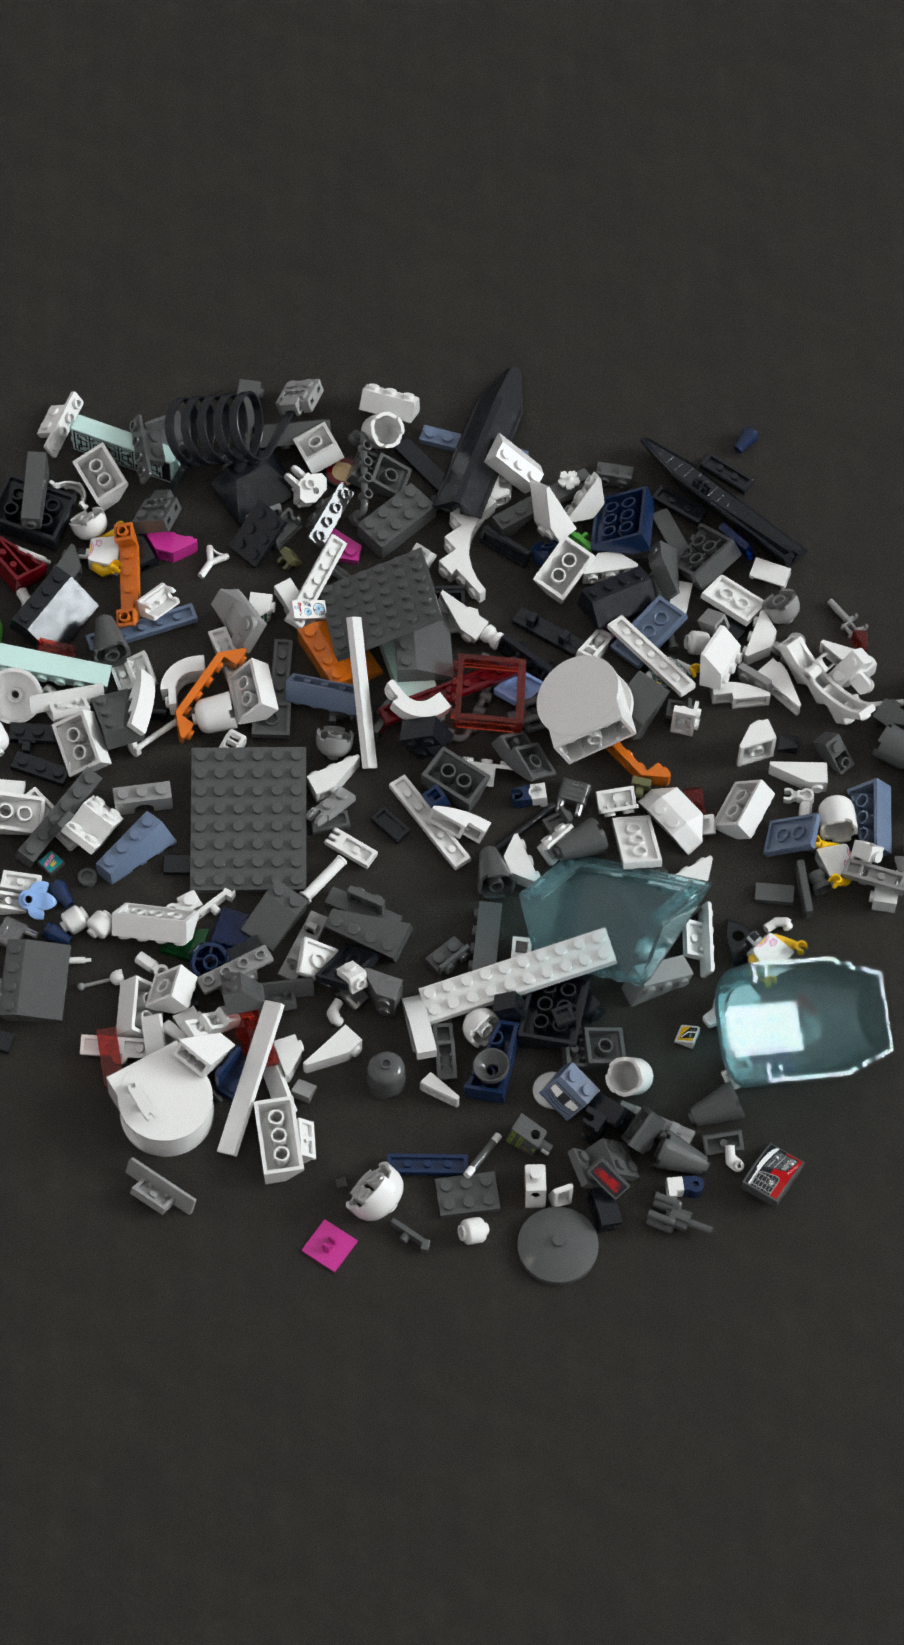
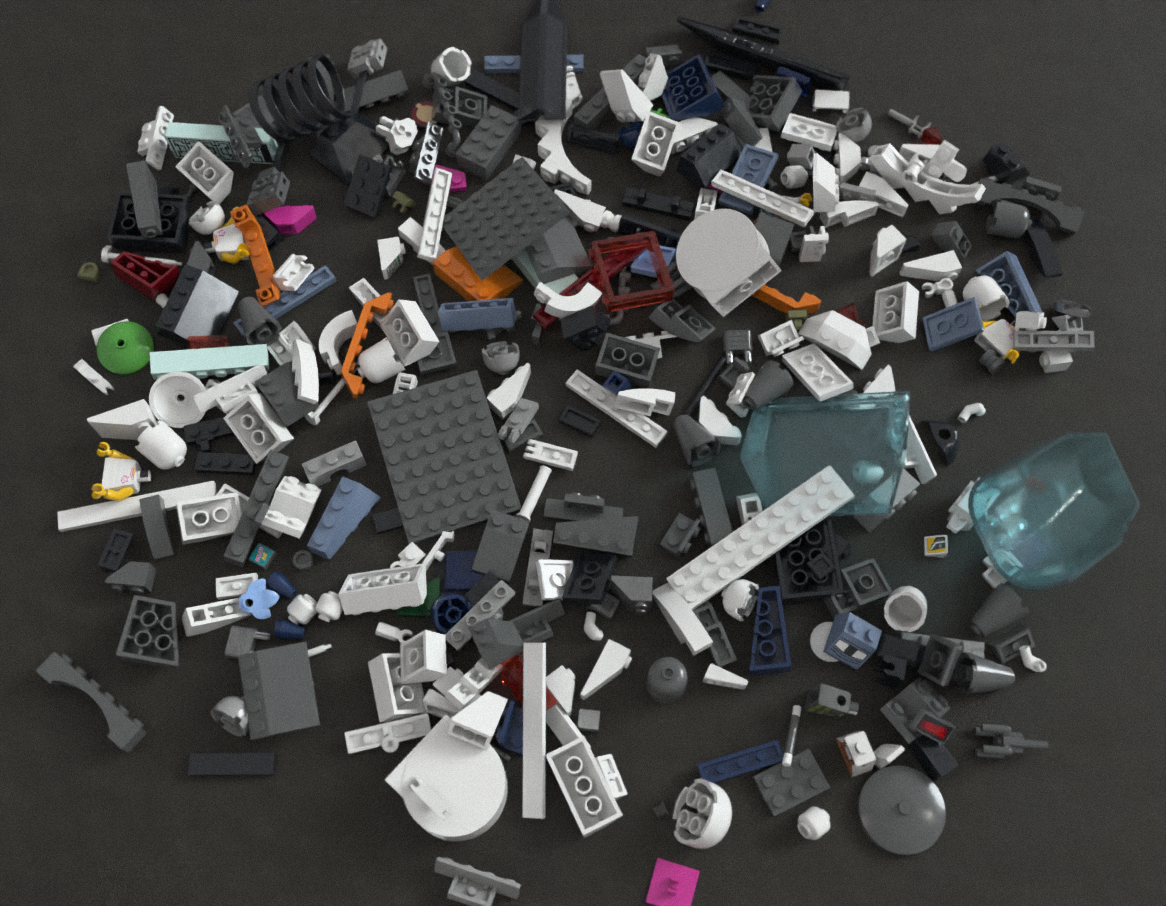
camera: 15 degrees left, 5 degrees up
(76, 486) = (178, 189): white helmet -> none
(109, 1052) = (379, 746): clear red tile -> none
(115, 977) = (362, 657): hinge -> none
(153, 1033) = (419, 711): white tile -> none
(211, 560) = (332, 222): white piece -> none
(239, 618) = (374, 266): light grey slope -> none
(307, 609) = (436, 241): white tile -> none
(318, 448) = (398, 97): white slope -> none
(354, 976) = (601, 587): white bracket -> none
(361, 692) = (513, 302): white tile -> none
(379, 400) = (438, 41): white slope -> none
(408, 1234) = (749, 847): dark grey piece -> none
(488, 1058) = (773, 631): dark grey piece -> none
(509, 1006) = (765, 572): black slope -> none
(513, 464) = (576, 67): white slope -> none
(529, 795) = (699, 356): leg -> none
(569, 480) = (630, 66): white plant -> none
(684, 1186) = (1002, 703): leg -> none
(772, 947) = (980, 442): torso -> none
(772, 1175) = (1077, 665): slope -> none
(774, 894) = (954, 384): dark grey tile -> none
(804, 891) = (981, 372): dark grey tile -> none

